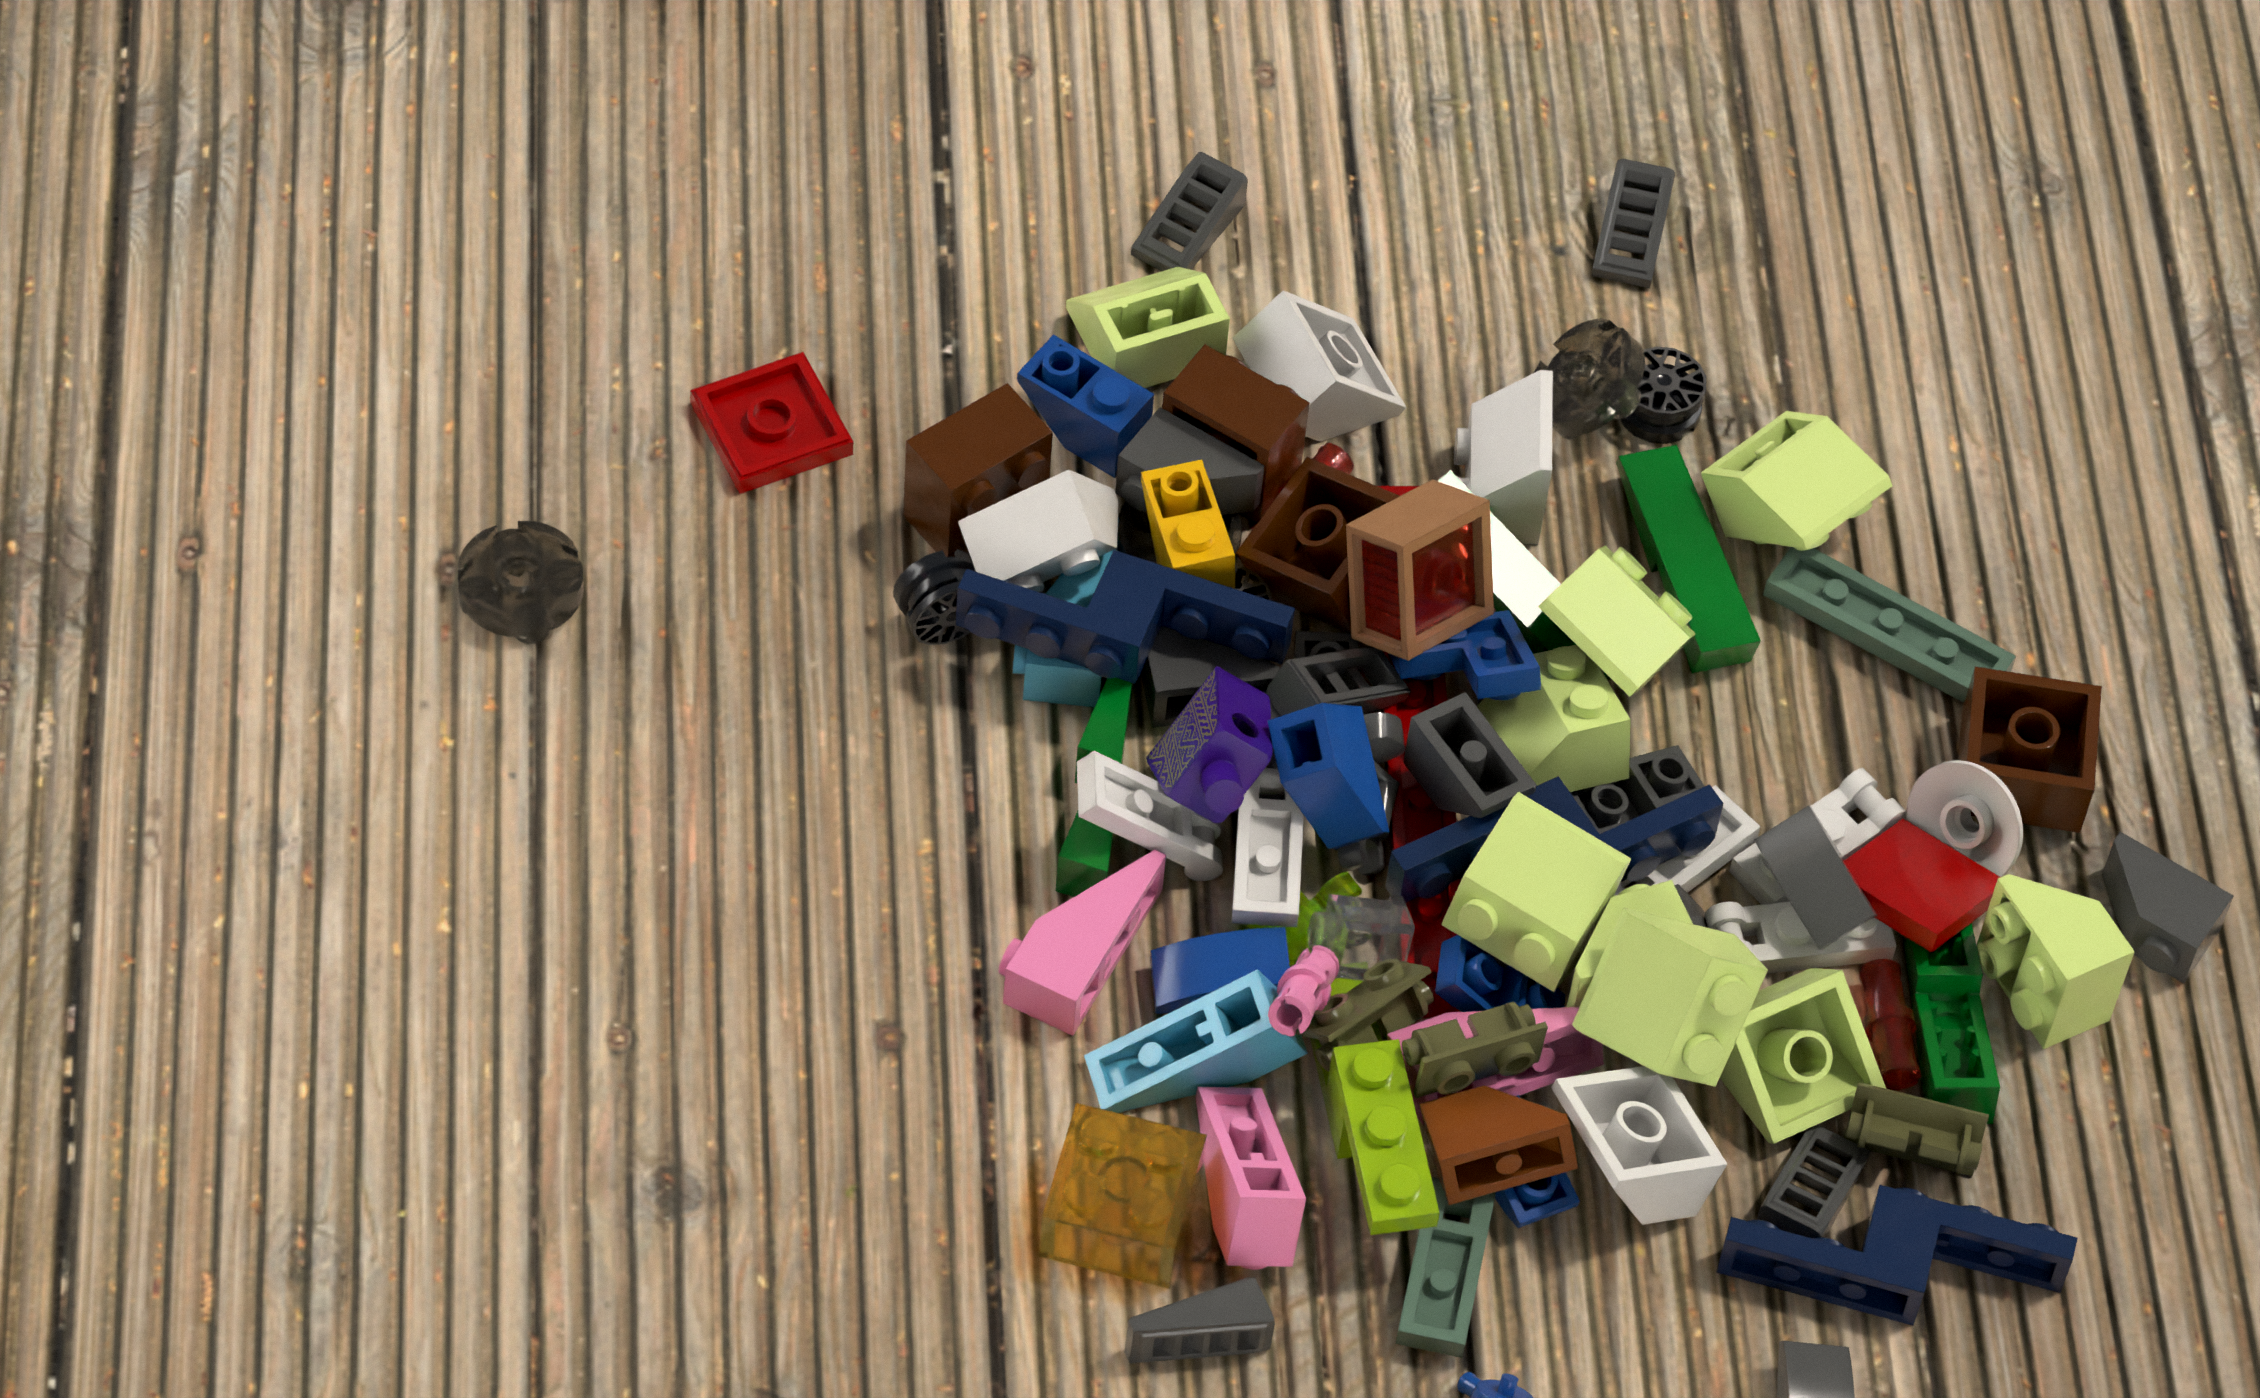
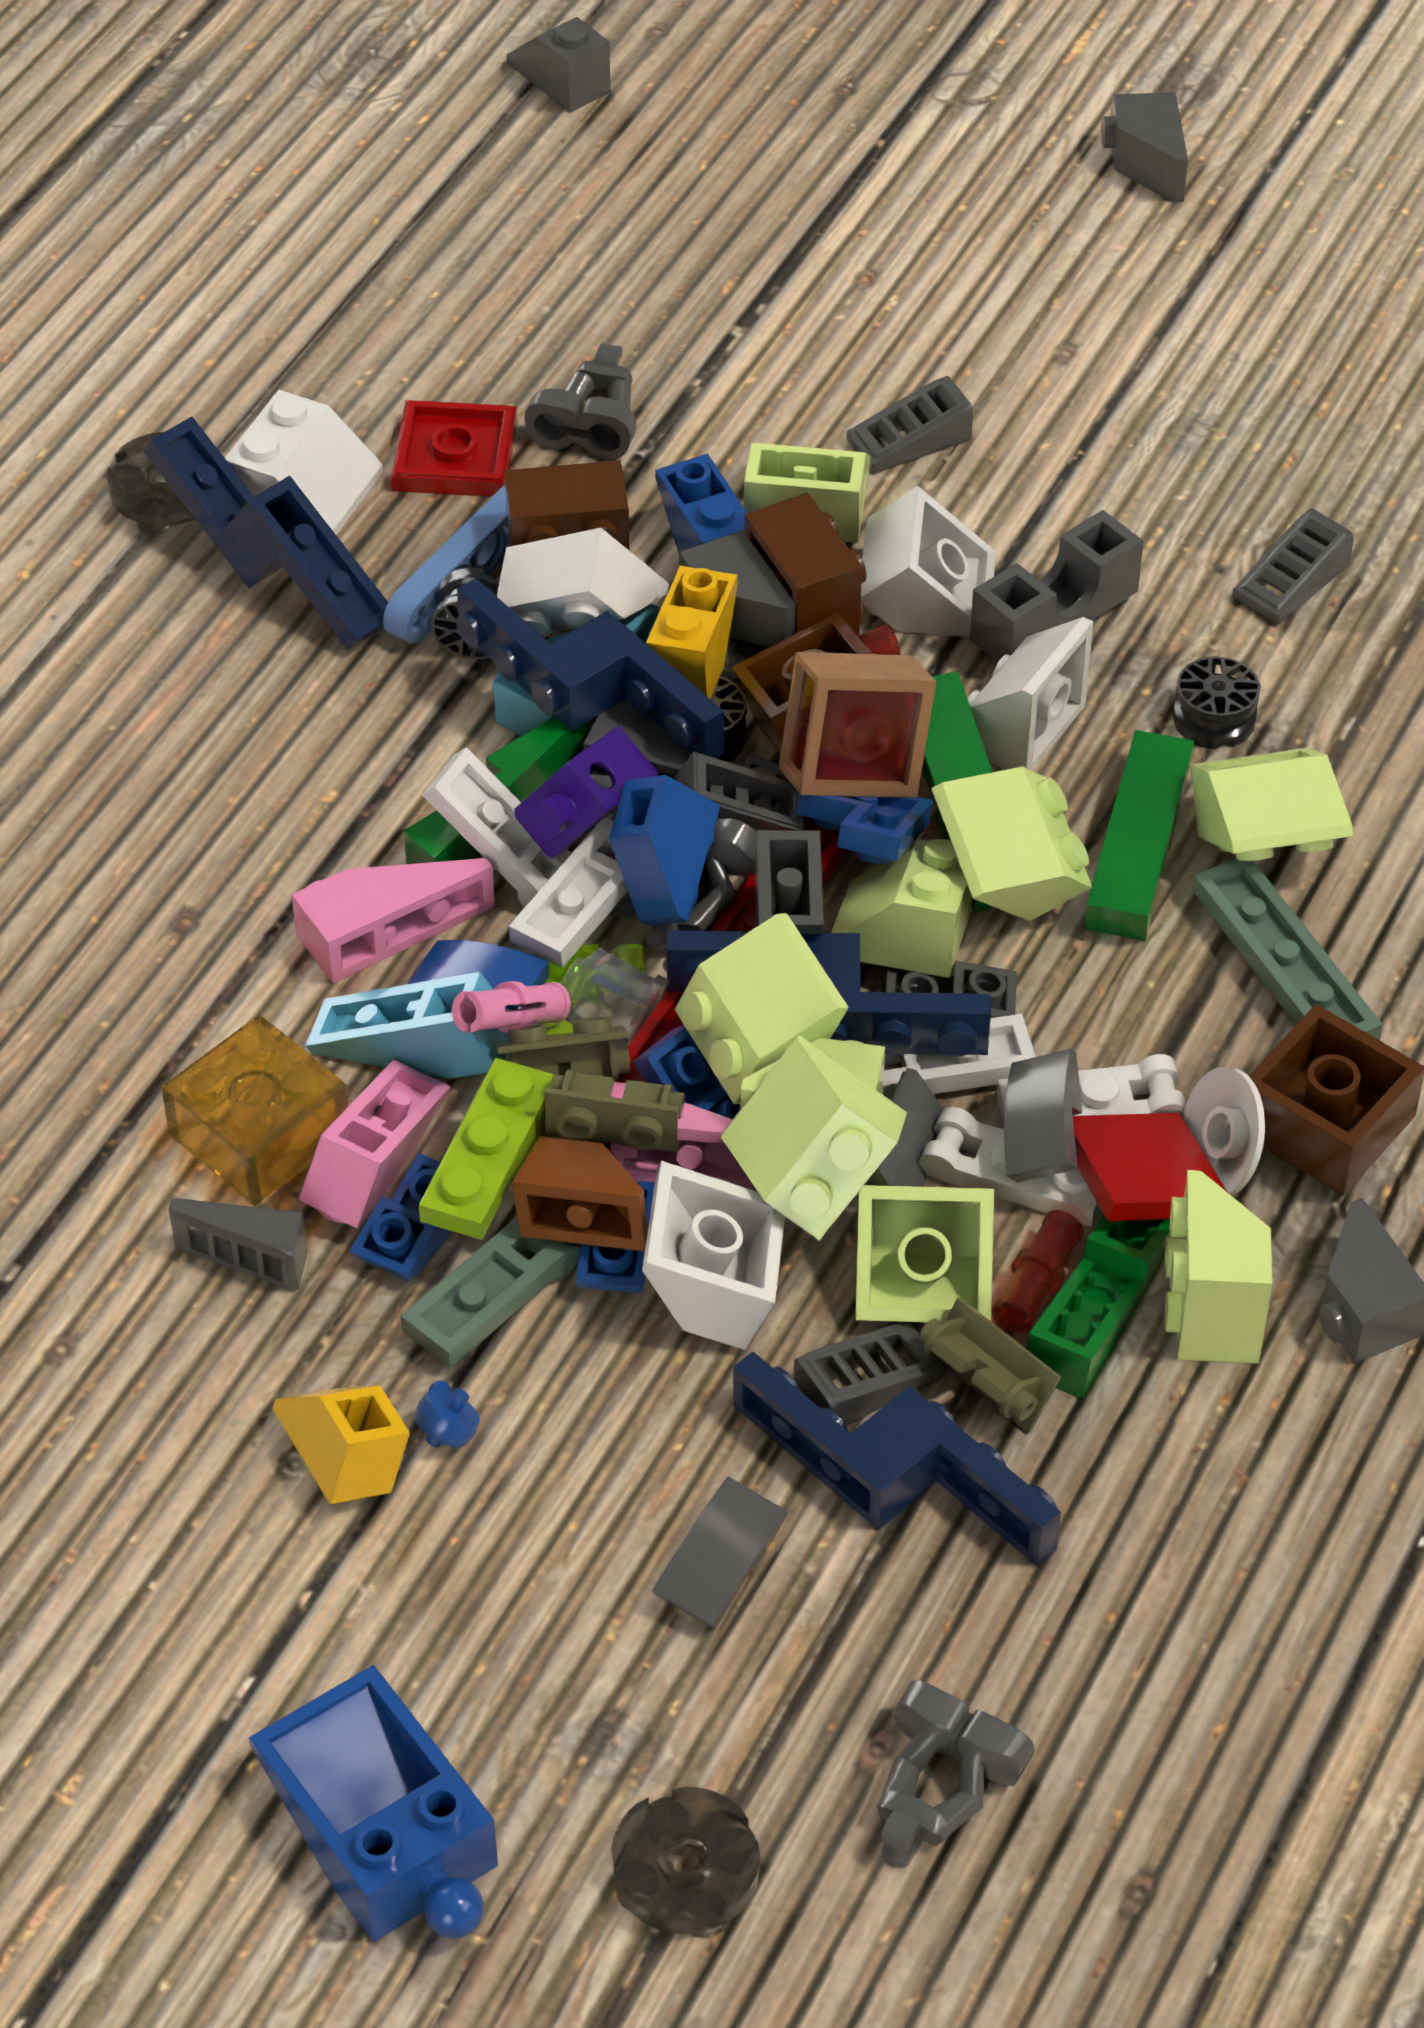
camera: 35 degrees right, 5 degrees down
(652, 512) = (313, 448): none -> white slope
(692, 597) = (268, 531): none -> dark blue bracket
(862, 347) = (602, 424): none -> dark grey piece
(881, 548) = (476, 545): none -> medium blue beam
(1331, 1233) = (393, 1233): none -> blue slope
(1455, 353) = (1092, 573): none -> dark grey arch
(1589, 402) = (1152, 663): clear smoke plate -> none

